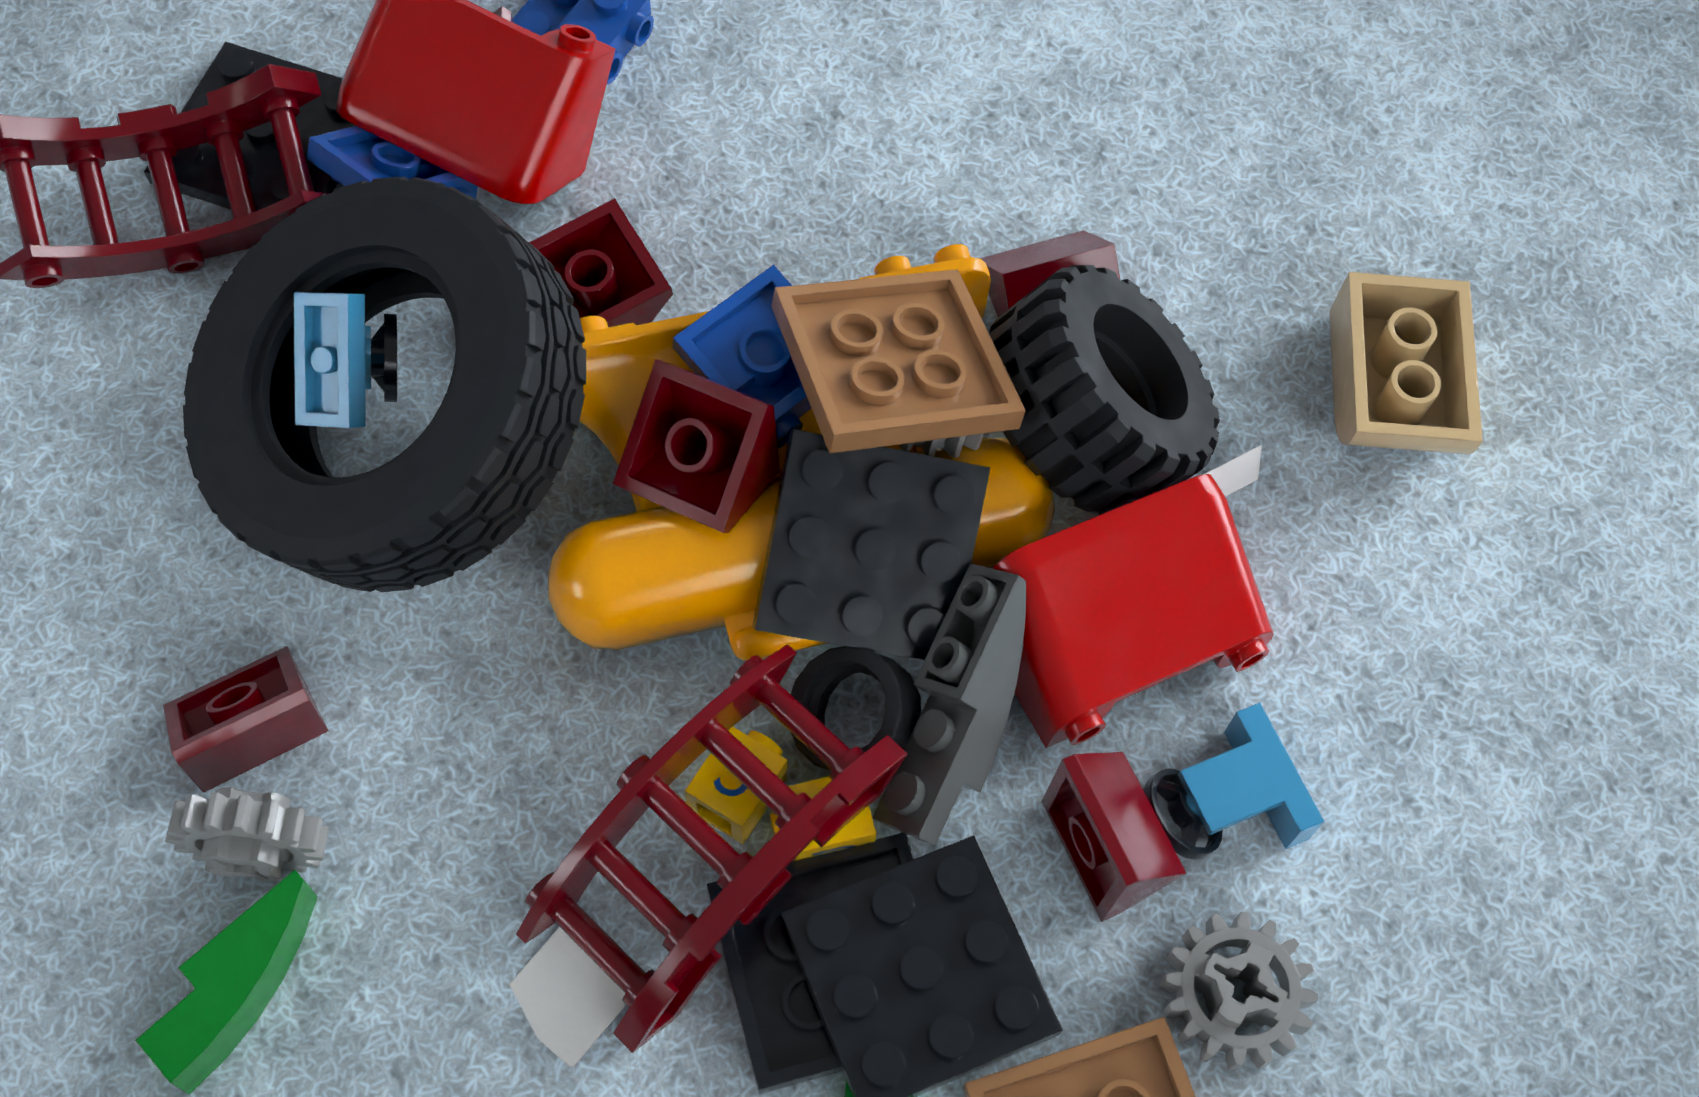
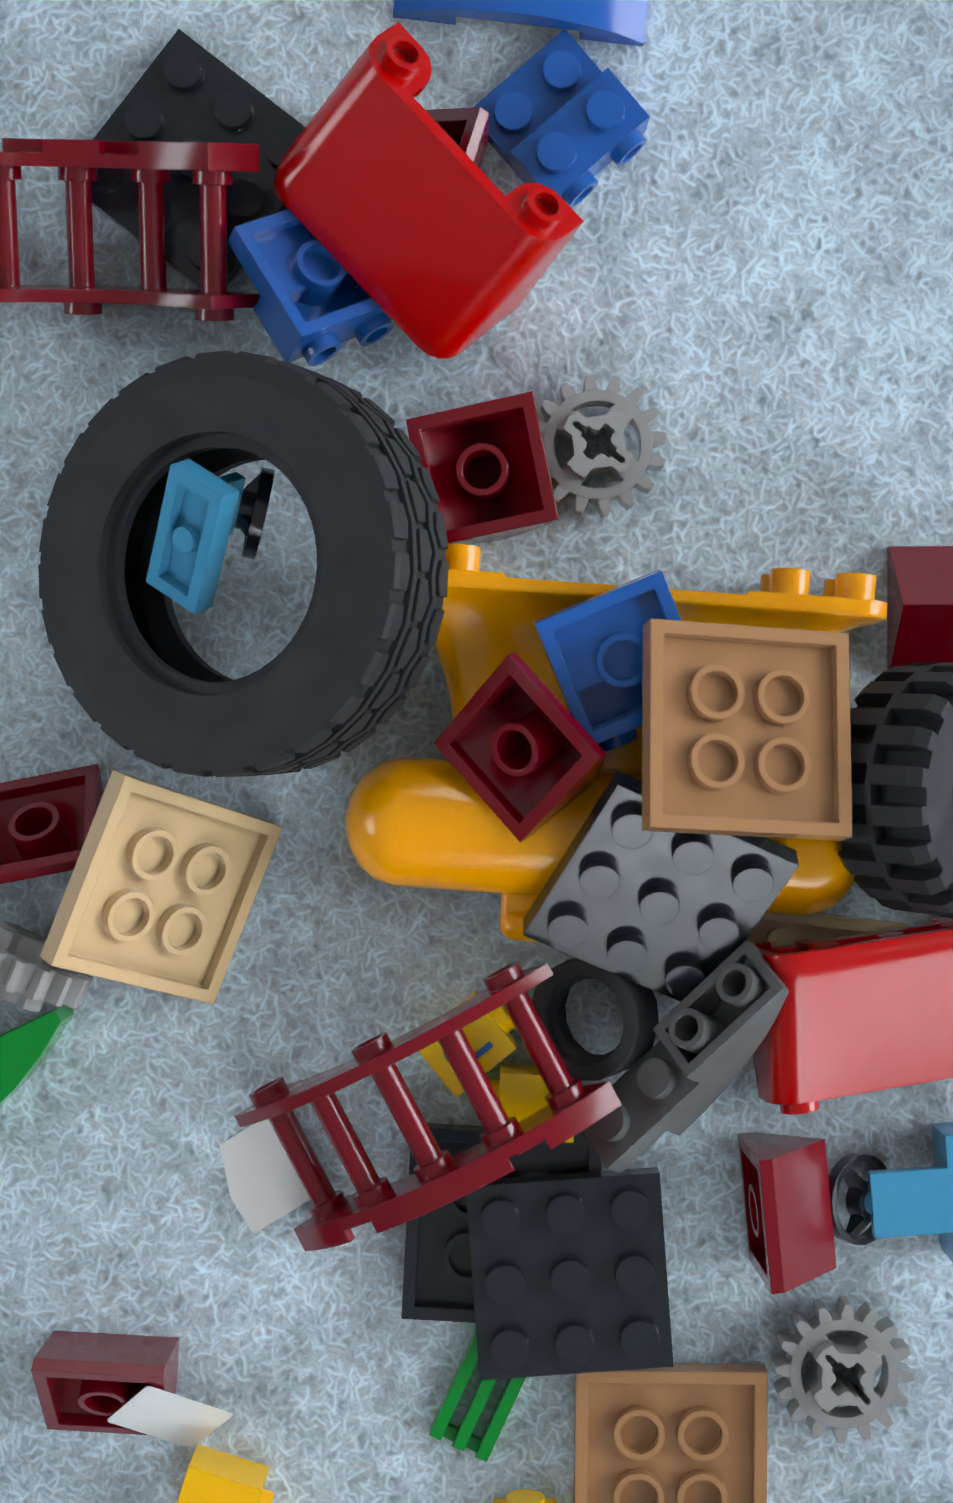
camera: 25 degrees right, 25 degrees up
(379, 714) = (160, 890): none -> tan plate
(694, 250) = (621, 465): none -> light grey gear

